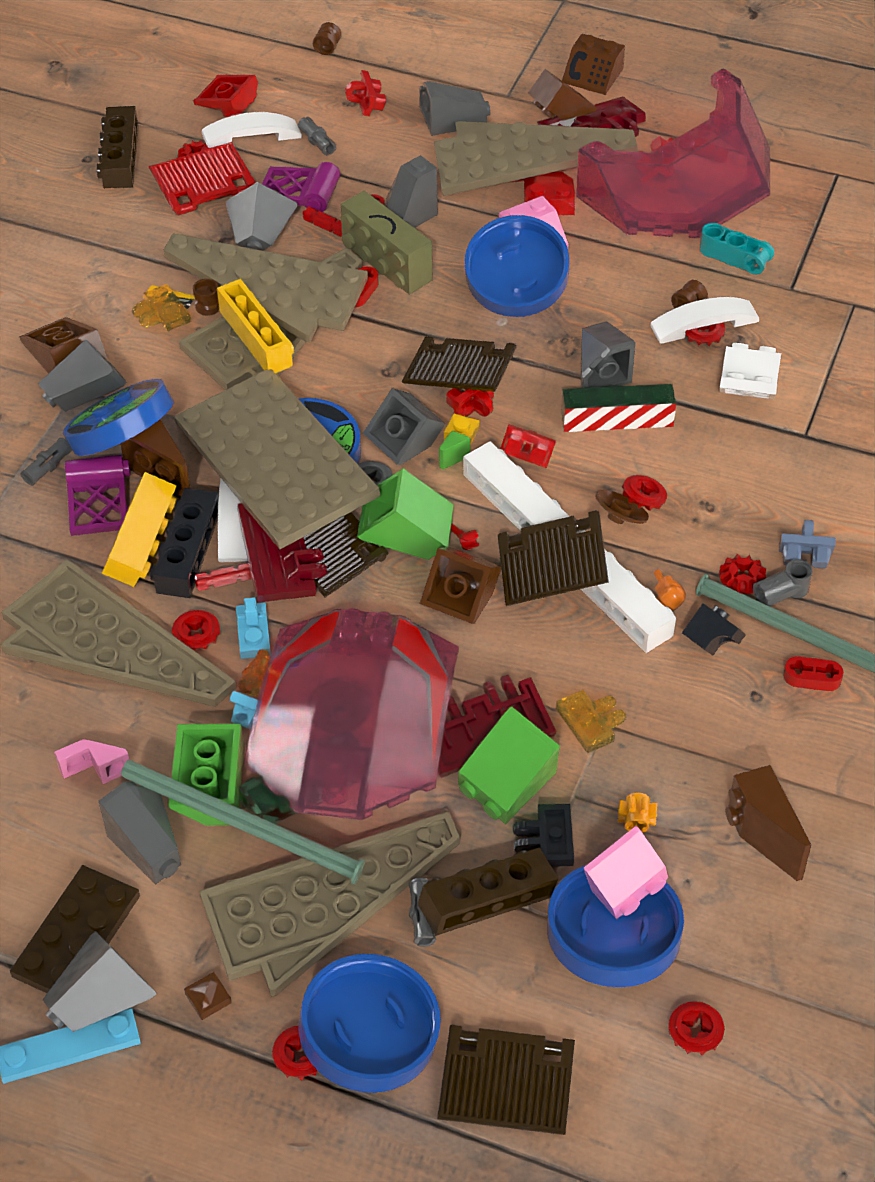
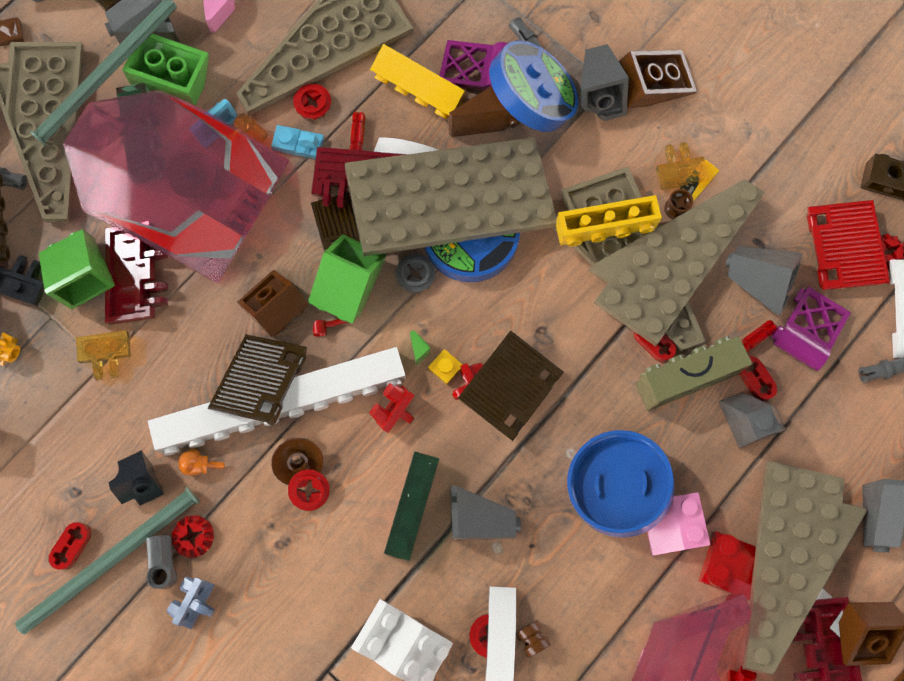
camera: 105 degrees right, 25 degrees up
(185, 543) = (403, 126): black brick -> none
(403, 426) = (460, 317): dark grey slope -> none

